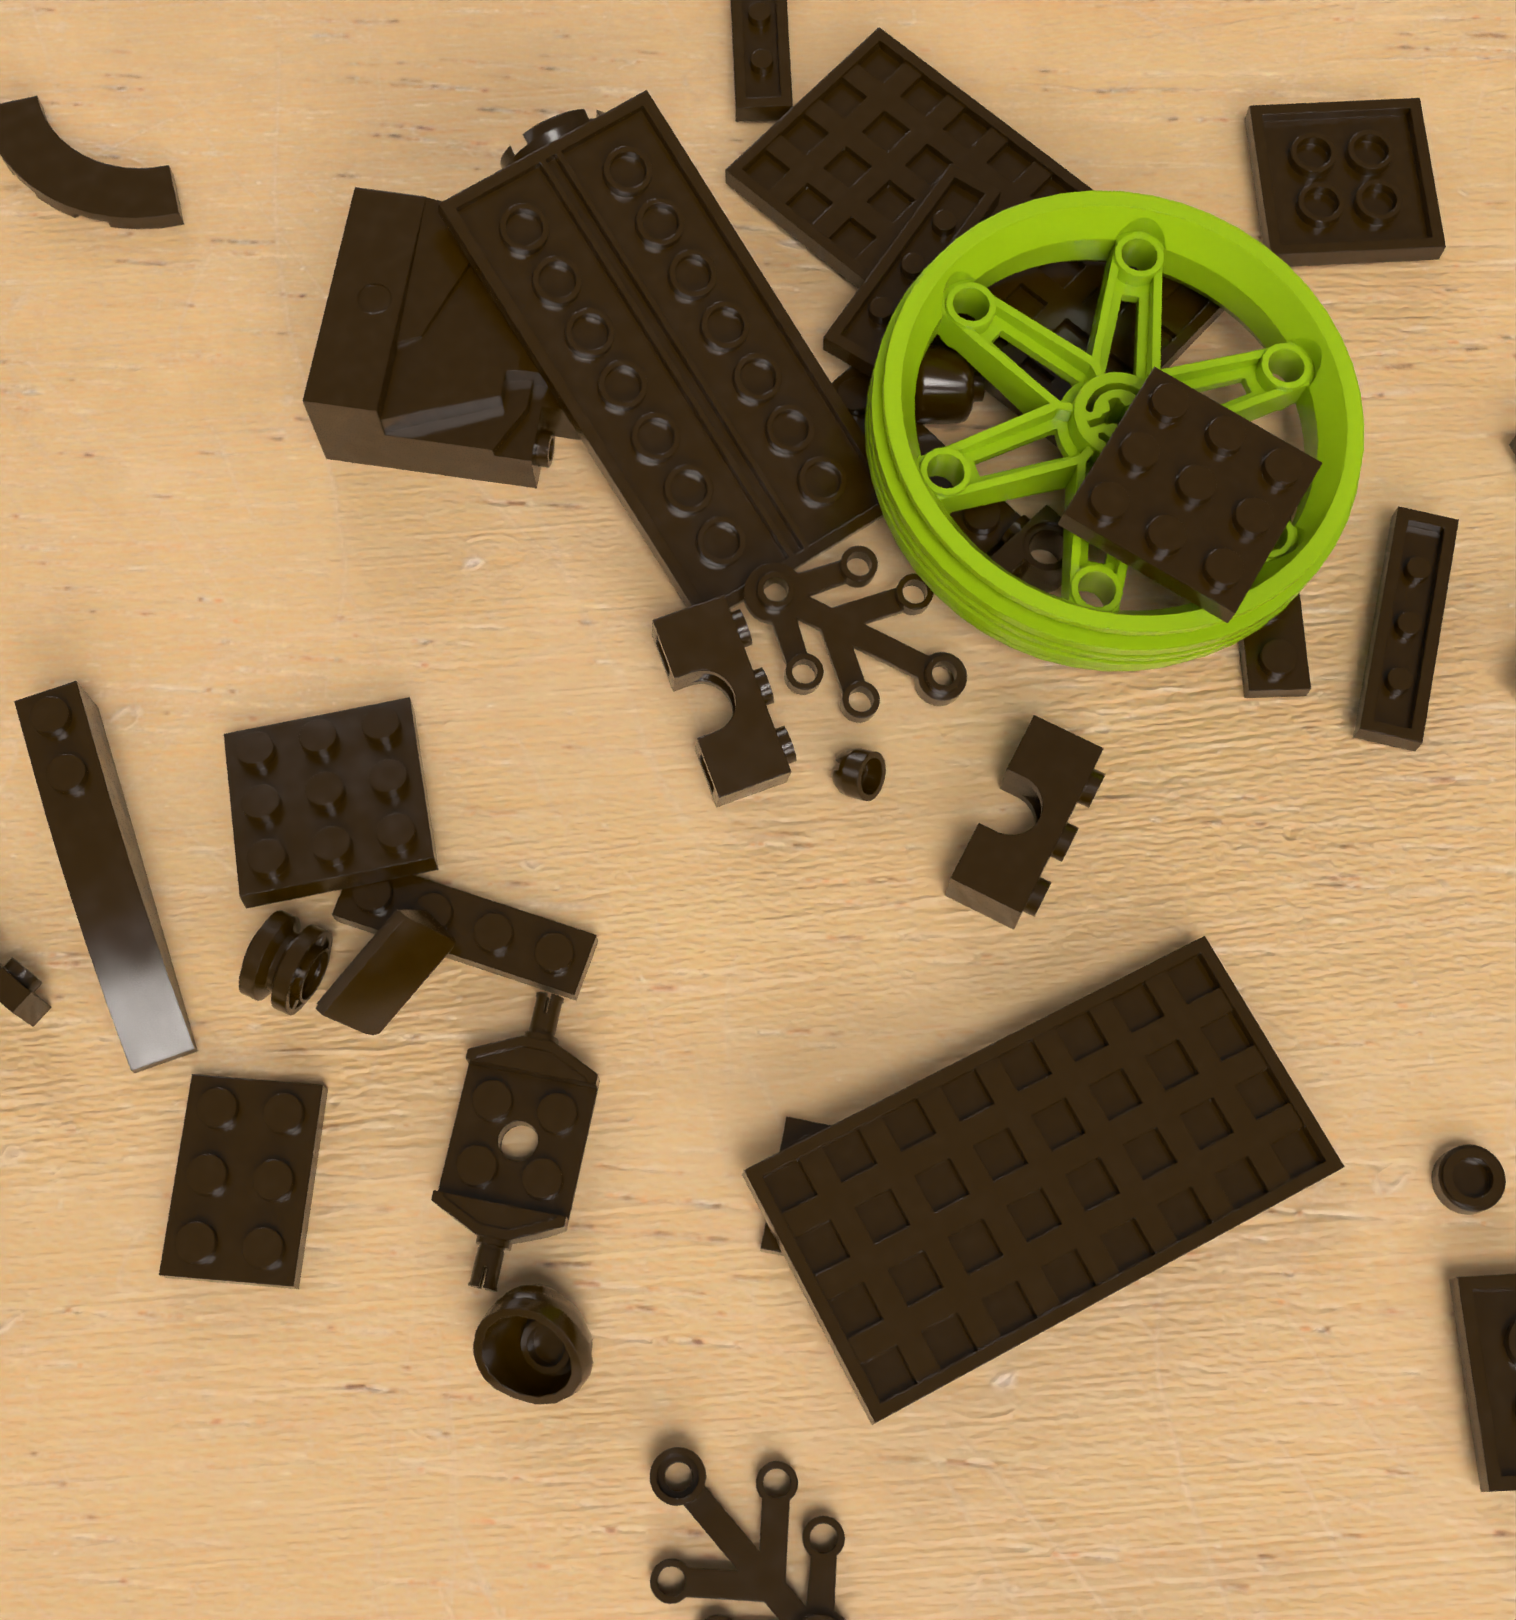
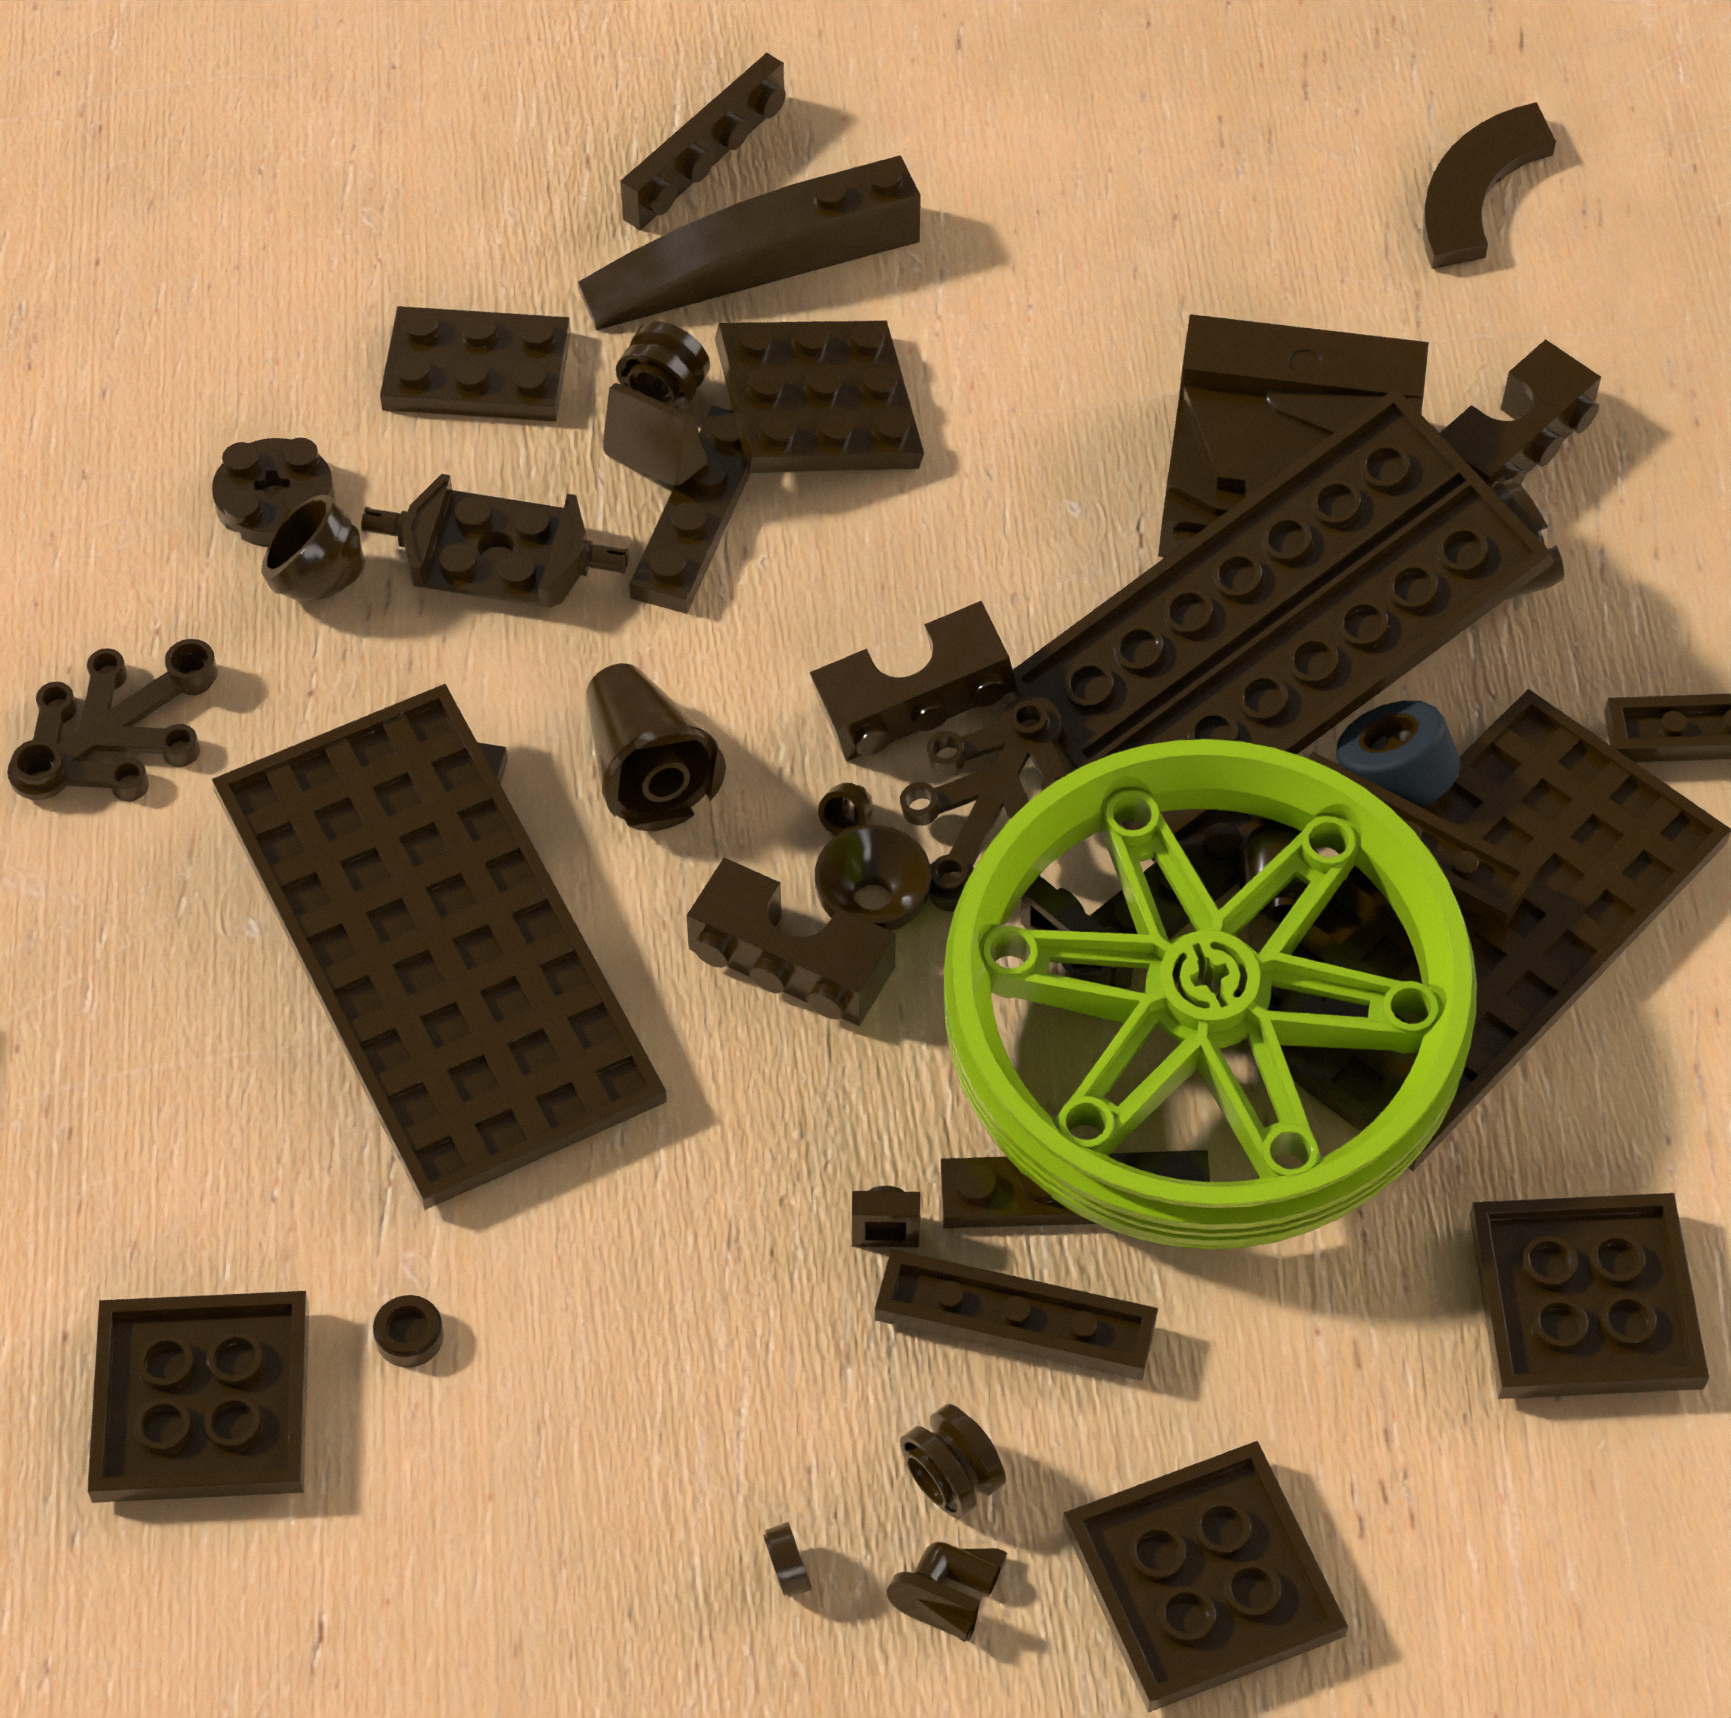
camera: 90 degrees right, 15 degrees down
(379, 126) = (1549, 401): none -> dark brown arch
(390, 1378) = (261, 464): none -> dark brown plate
(791, 268) = (1402, 750): none -> black wheel
(793, 967) = (649, 751): none -> dark brown cone
(959, 715) = (878, 858): none -> dark brown piece
(1190, 494) = (1106, 1015): dark brown plate -> none
(1322, 735) = (885, 1217): none -> dark brown plate

